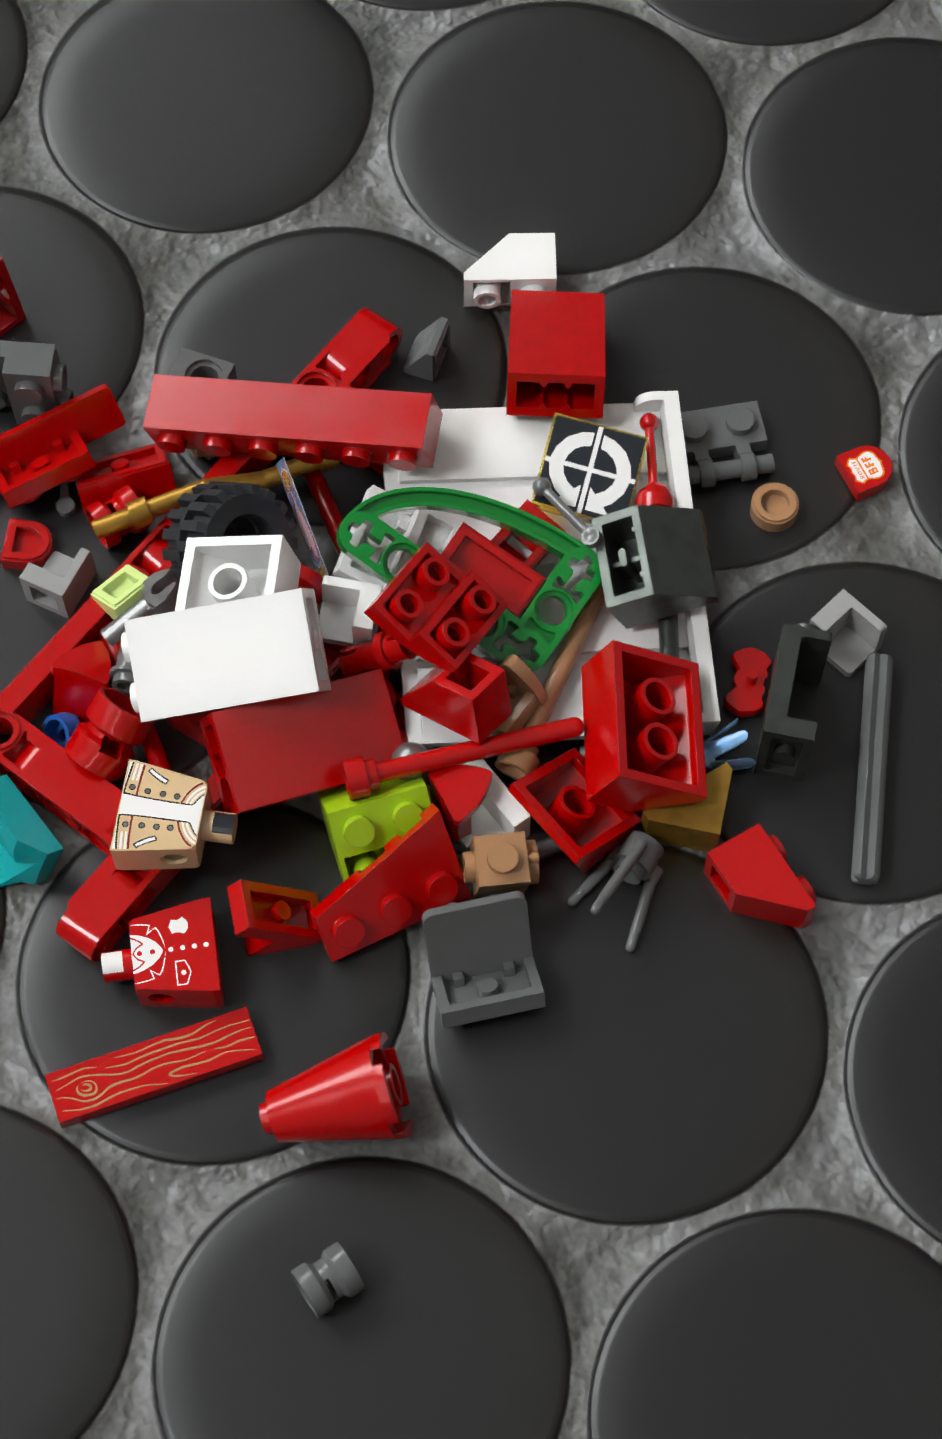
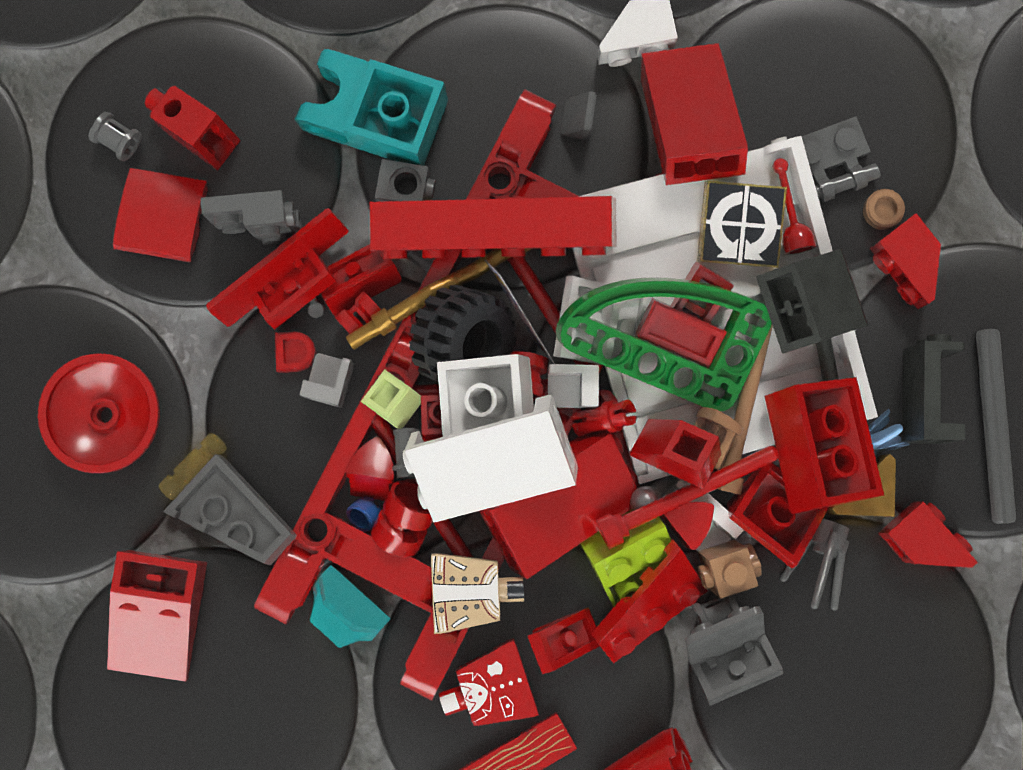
camera: 10 degrees left, 20 degrees up
(159, 597) = (415, 411): flat silver bar -> none
(190, 298) = (368, 108): none -> teal brick
(436, 609) = (652, 390): red slope -> none
(589, 535) = (759, 293): dark grey hinge -> none
(748, 682) = (888, 369): red piece -> none
(793, 557) = (911, 259): none -> red slope
(854, 632) = (959, 315): light grey panel -> none
(864, 470) = (951, 163): red tile -> none

